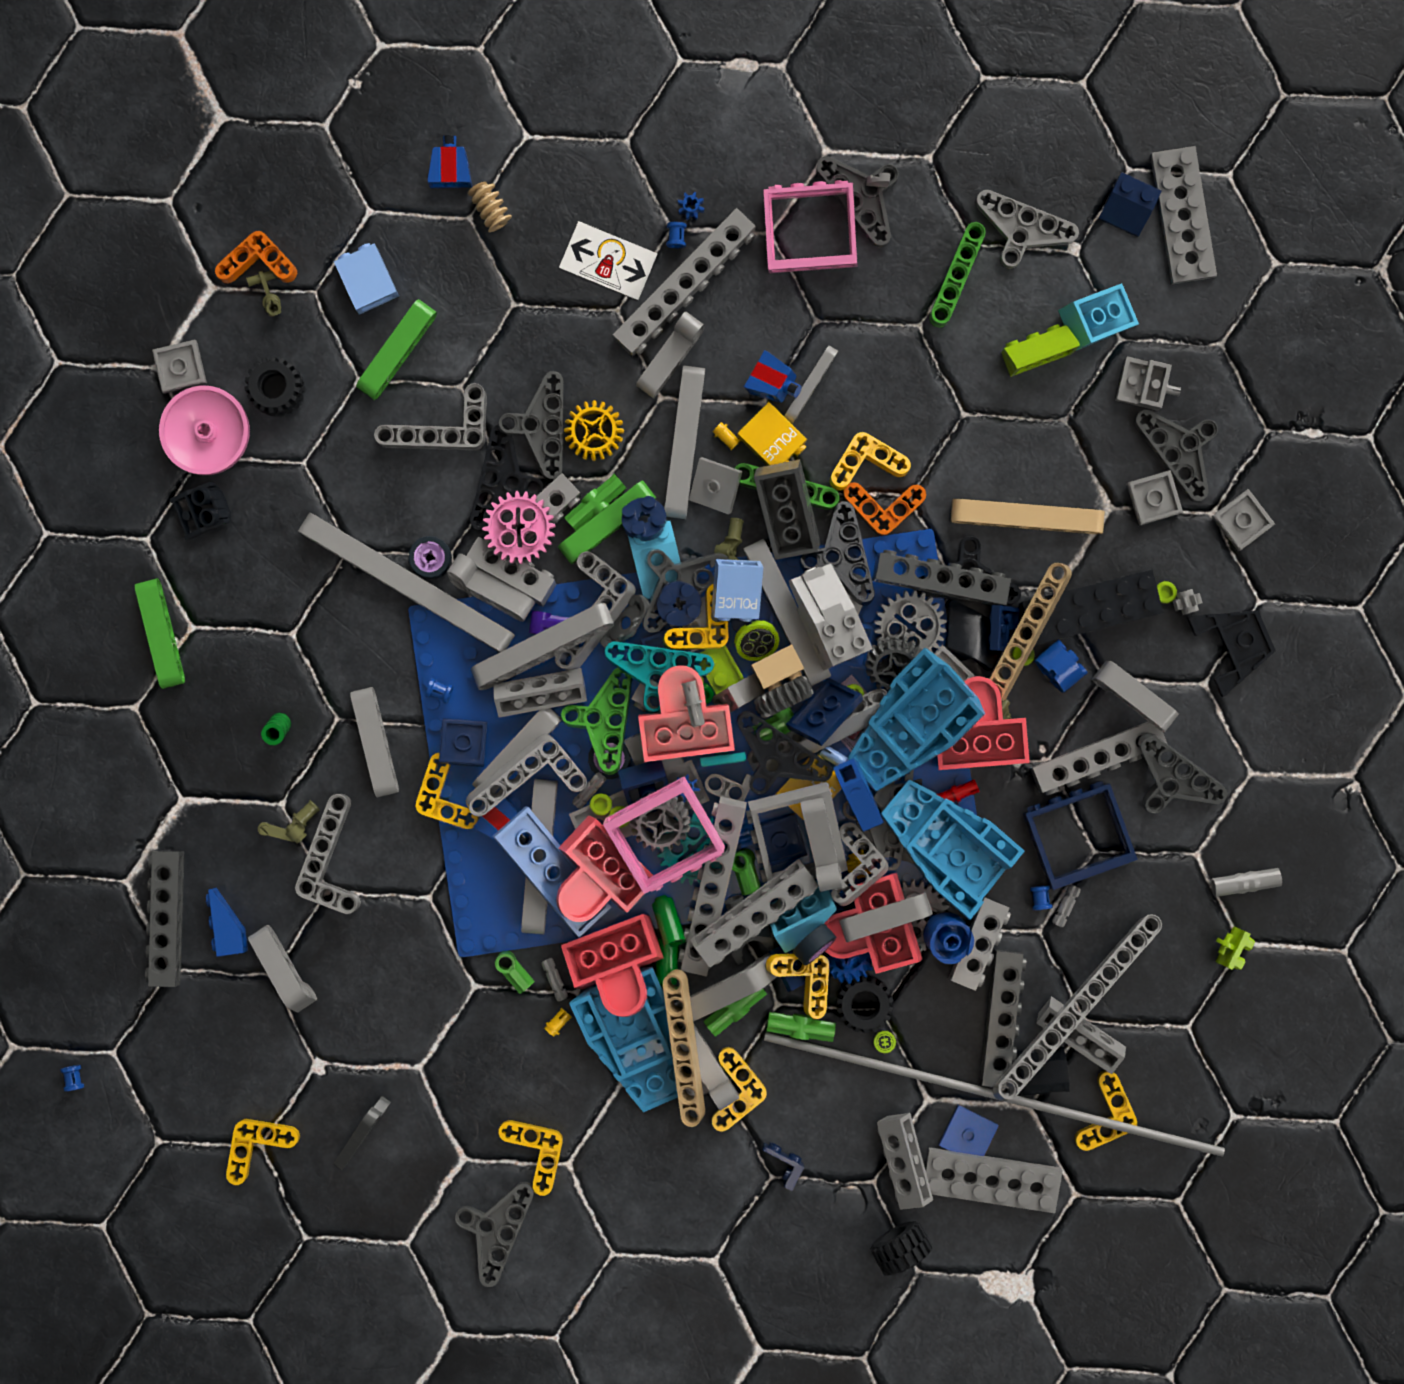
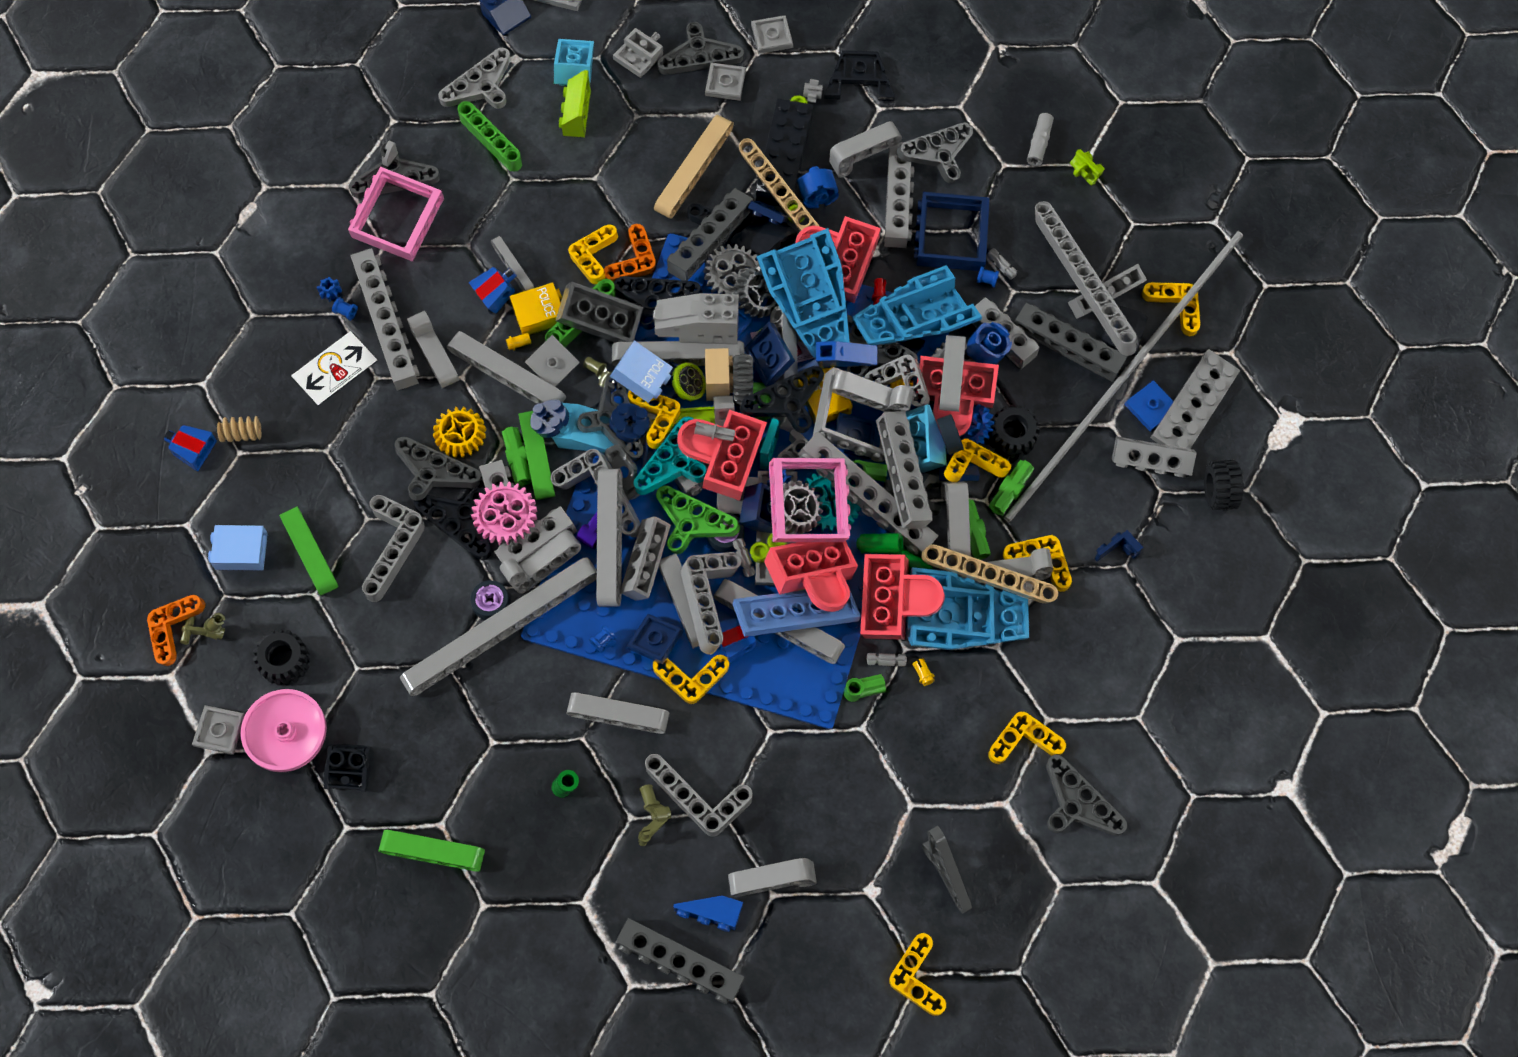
camera: 70 degrees left, 20 degrees down
(884, 1041) = (1051, 434): lime tile -> none

